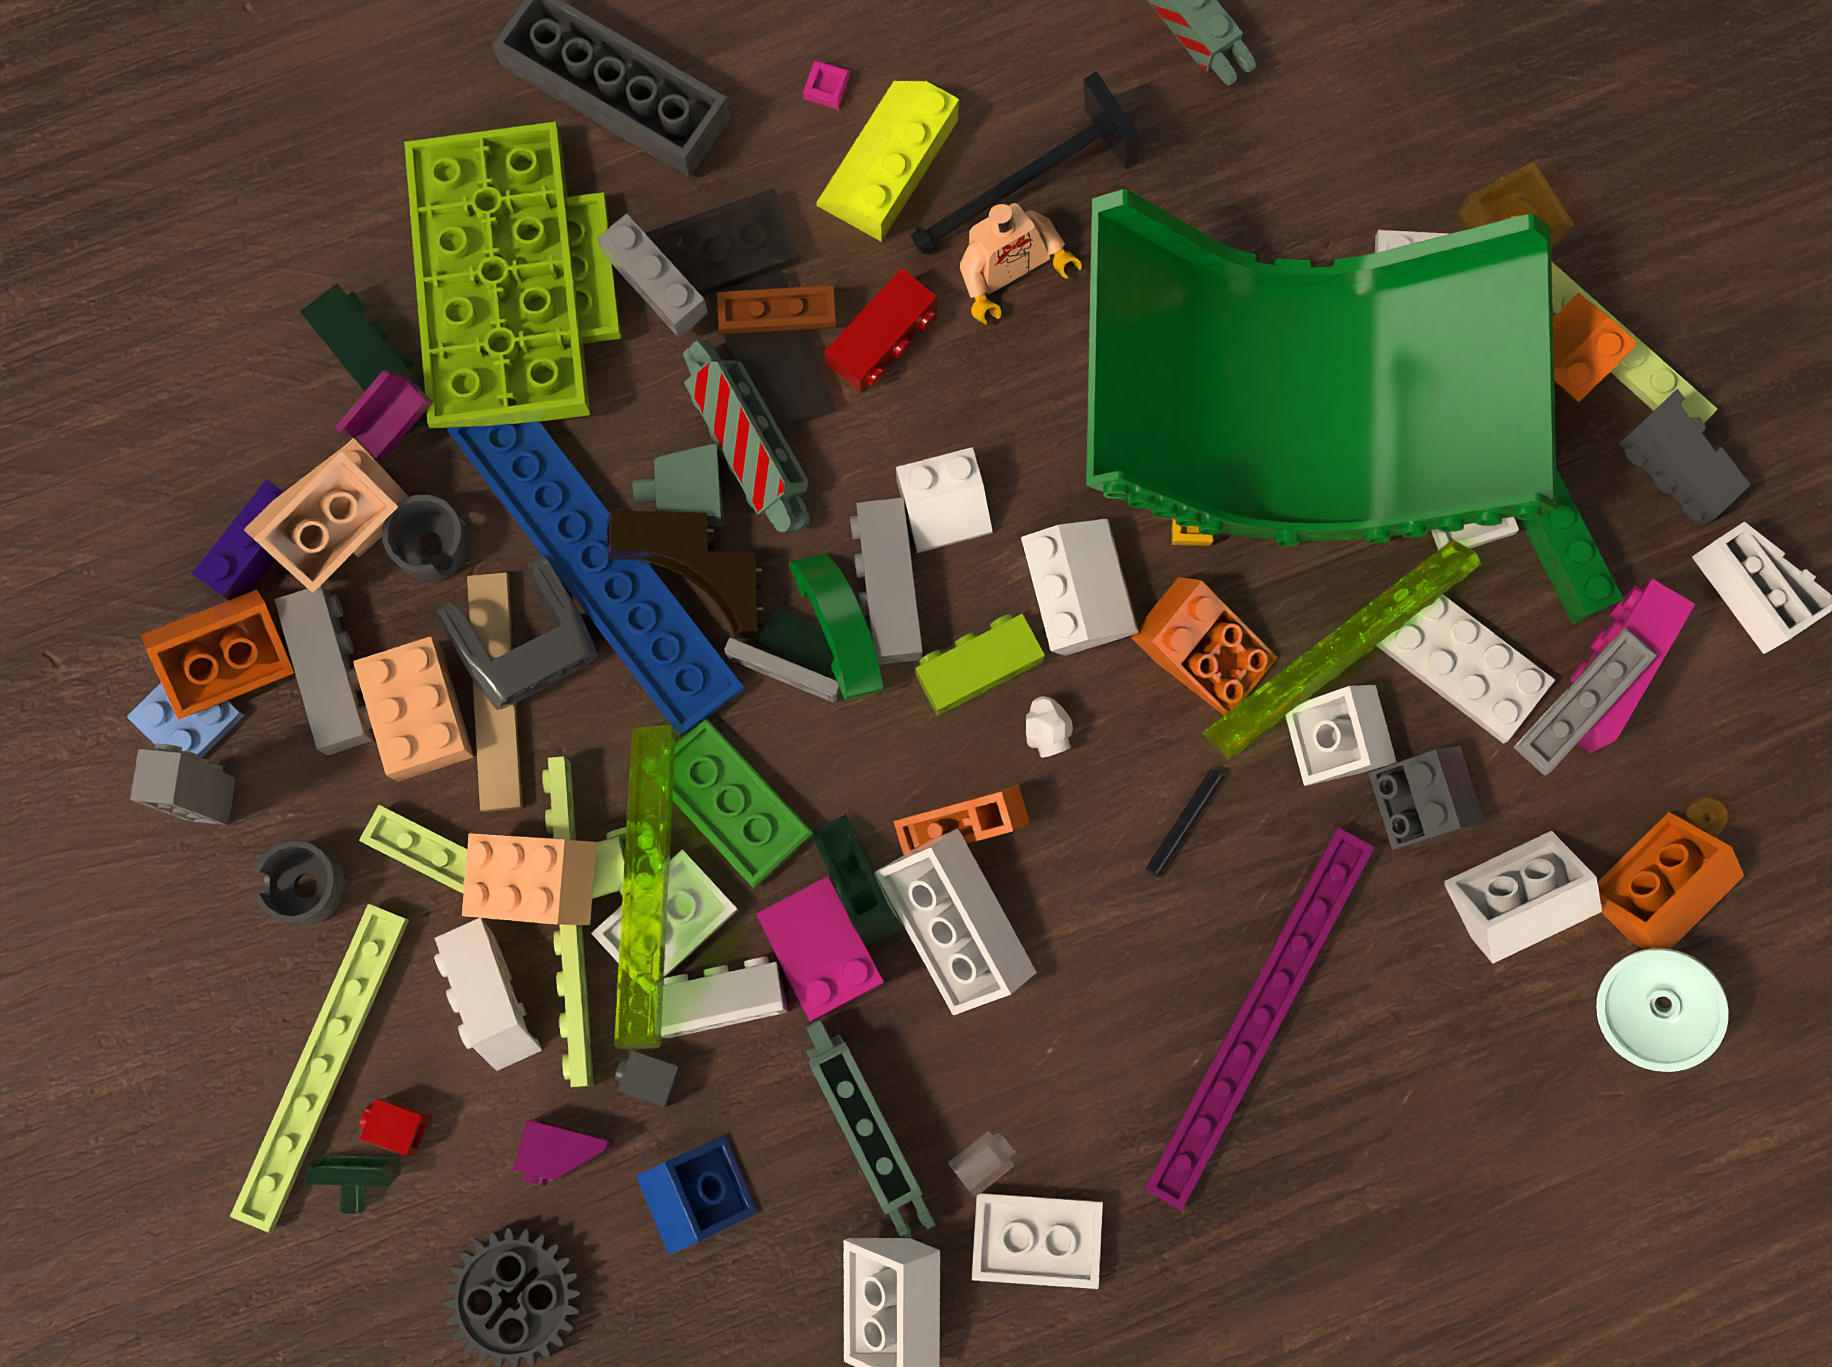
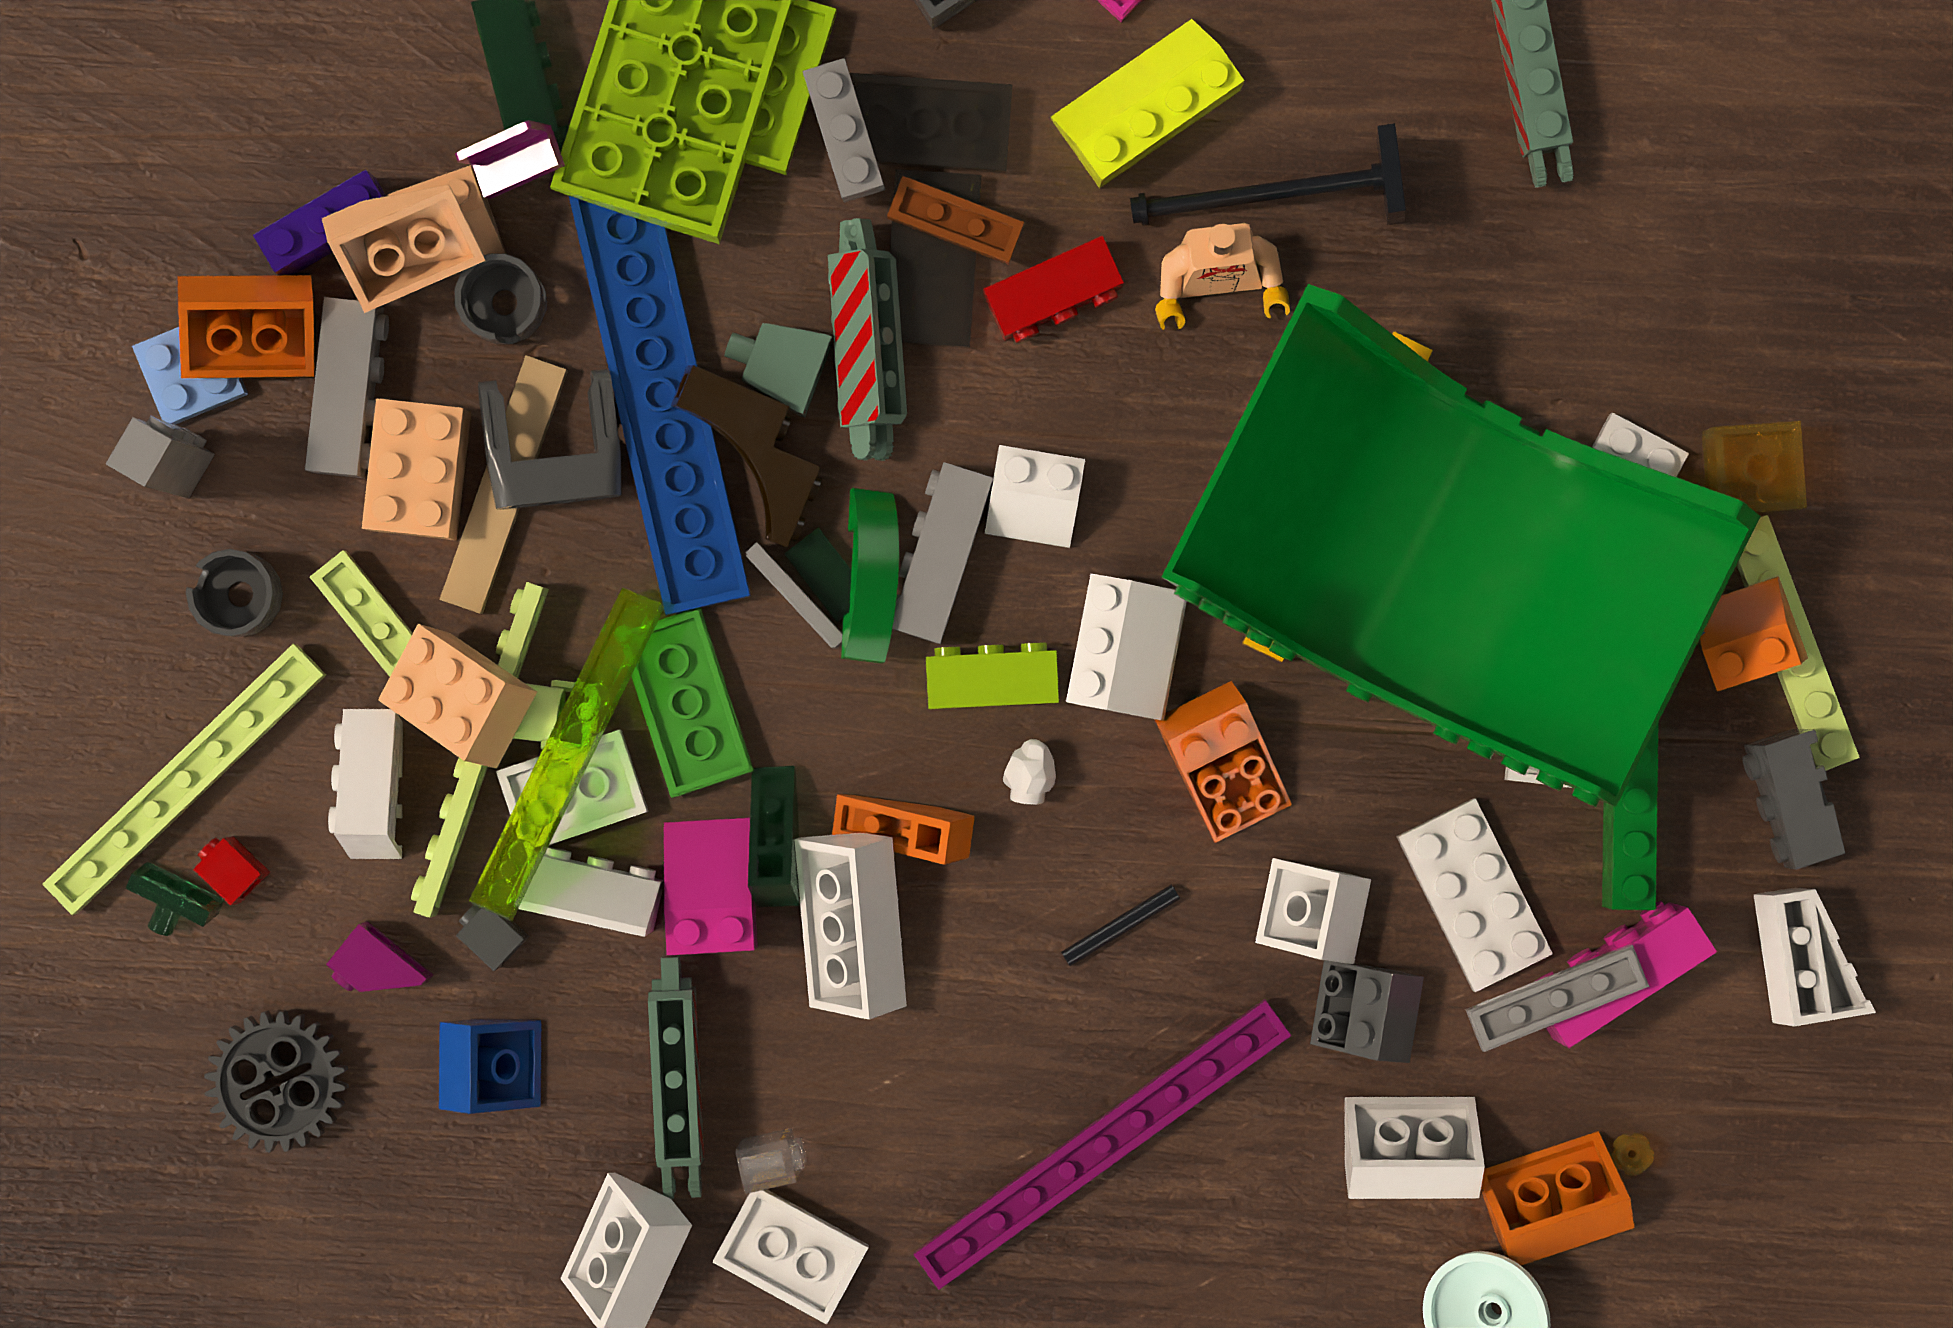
camera: 25 degrees right, 10 degrees up
(1341, 648) = (1356, 828): clear neon green plate -> none

